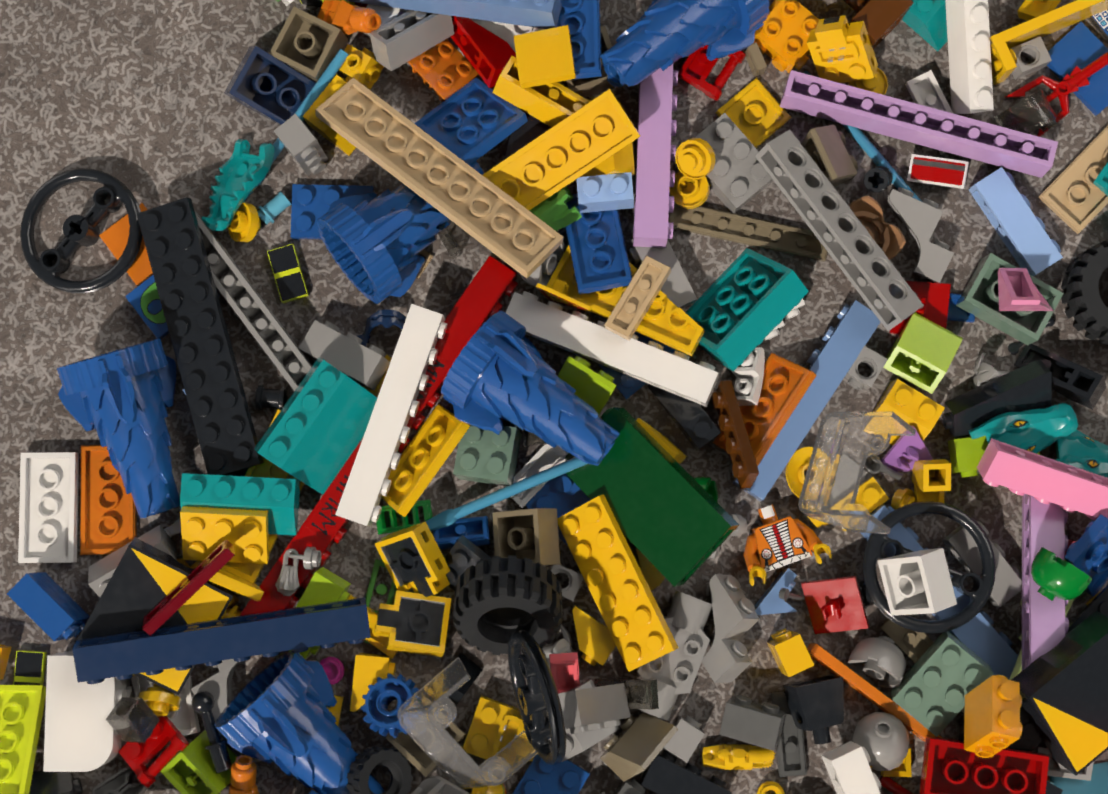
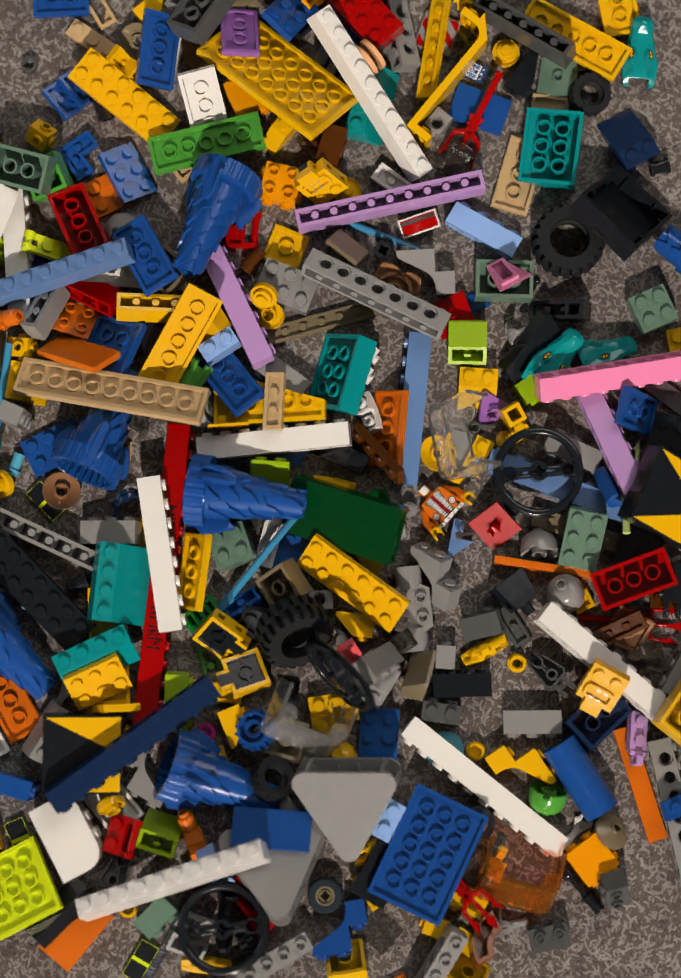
camera: 30 degrees left, 0 degrees up
(133, 719) = (101, 823): clear smoke brick -> none
(188, 587) = (93, 722): dark red tile -> none
(203, 704) = (138, 792): black pin -> none
(288, 578) = (151, 689): light grey piece -> none
(312, 257) = (64, 482): none -> medium nougat dish
(424, 109) = (78, 353): none -> orange tile
(544, 57) = (138, 283): yellow tile -> none
(703, 109) = (252, 261): none -> reddish brown cone
(755, 60) = (269, 212): dark tan tile -> none
(789, 652) = (481, 568): yellow brick -> none
(873, 361) = (441, 362): light grey brick -> none
(917, 582) = (533, 484): white slope -> none
(992, 716) = (617, 540): light orange brick -> none
(1009, 635) = (607, 487): none -> blue brick
(1057, 576) = (615, 436): green cylinder -> none

